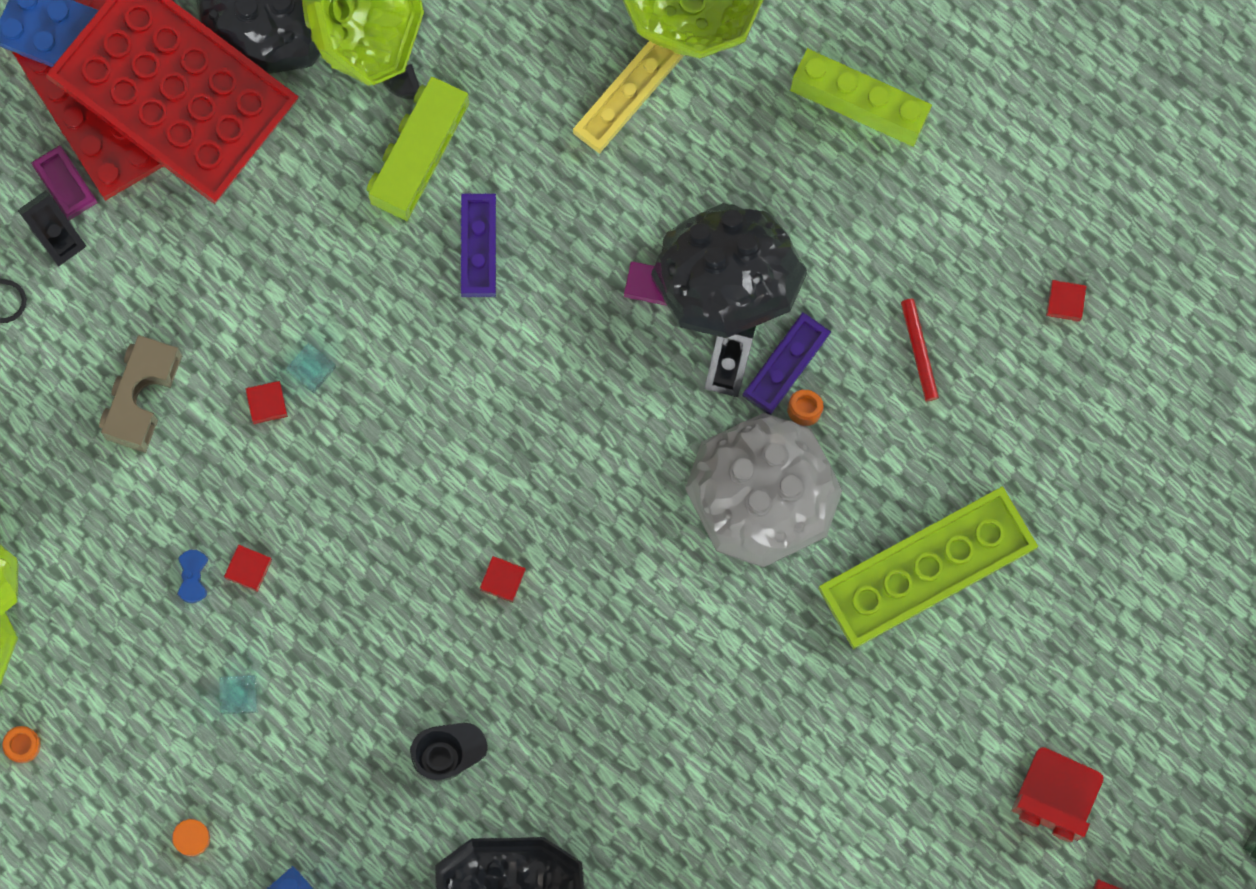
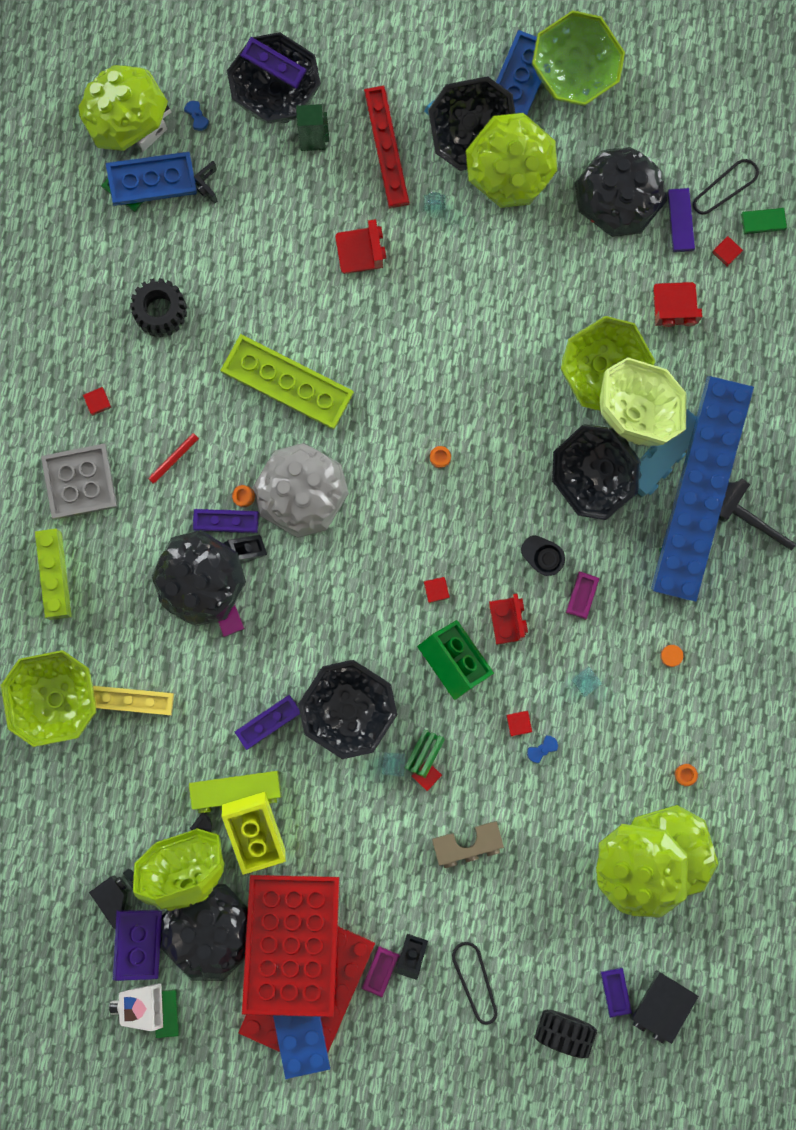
camera: 120 degrees left, 5 degrees up
(306, 410) = (422, 740): none -> green tile
(346, 130) = (253, 833): none -> neon yellow brick
(358, 772) = (582, 595): none -> magenta tile
(389, 539) = (455, 659): none -> green slope
(396, 643) = (507, 620): none -> red bracket
(419, 345) = (347, 709): none -> black rock
(683, 708) = (440, 457): none -> orange tile
(967, 208) = (79, 481): none -> light grey plate
(1163, 437) = (151, 292): none -> black tyre

